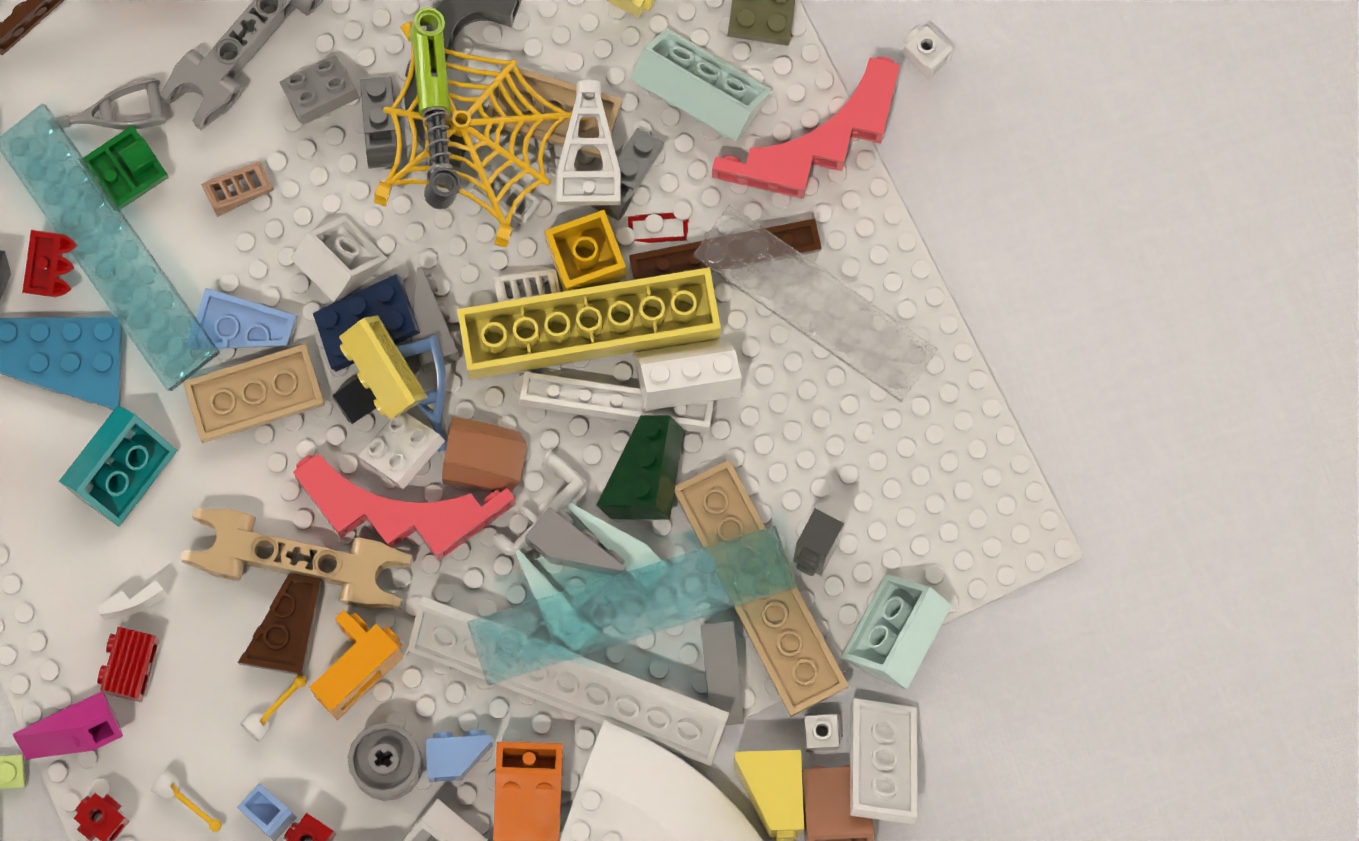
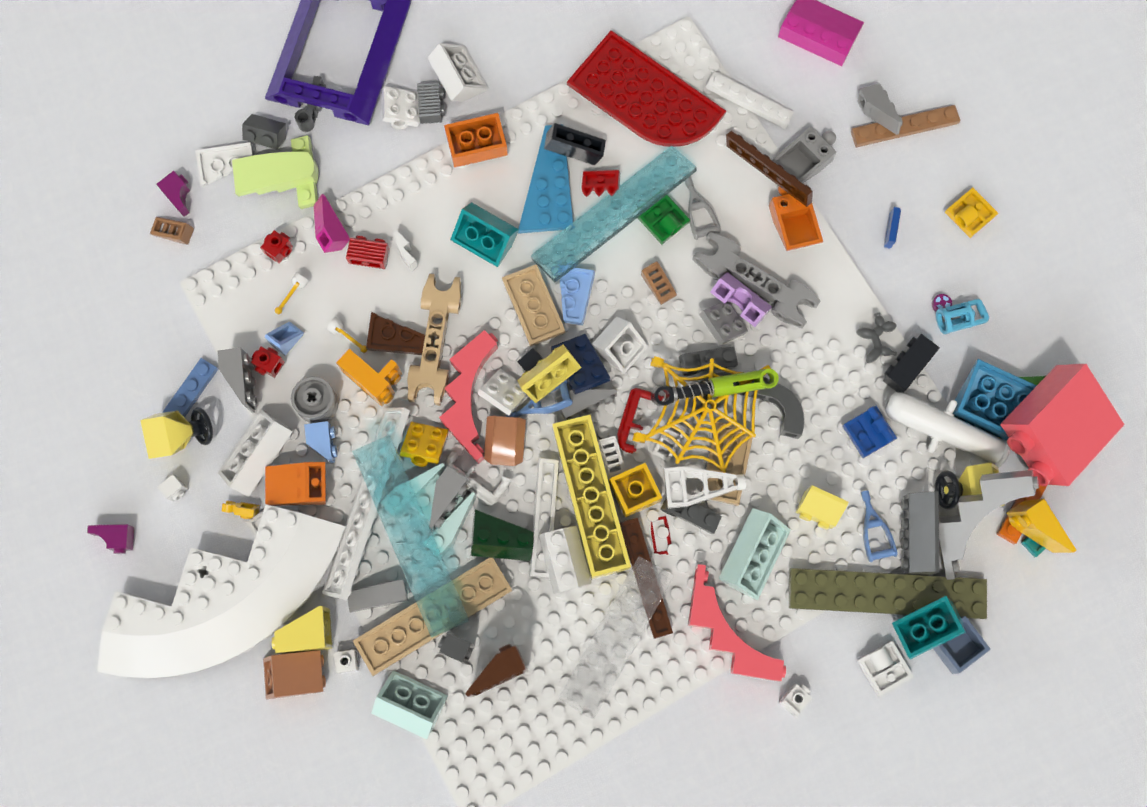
camera: 85 degrees right, 0 degrees up
(297, 41) = (732, 290): none -> lavender arch
(460, 256) = (628, 417): none -> red piece
(478, 582) = (424, 444): none -> yellow plate
(857, 475) = (501, 668): none -> reddish brown slope
(883, 761) = (324, 701): white plate -> none

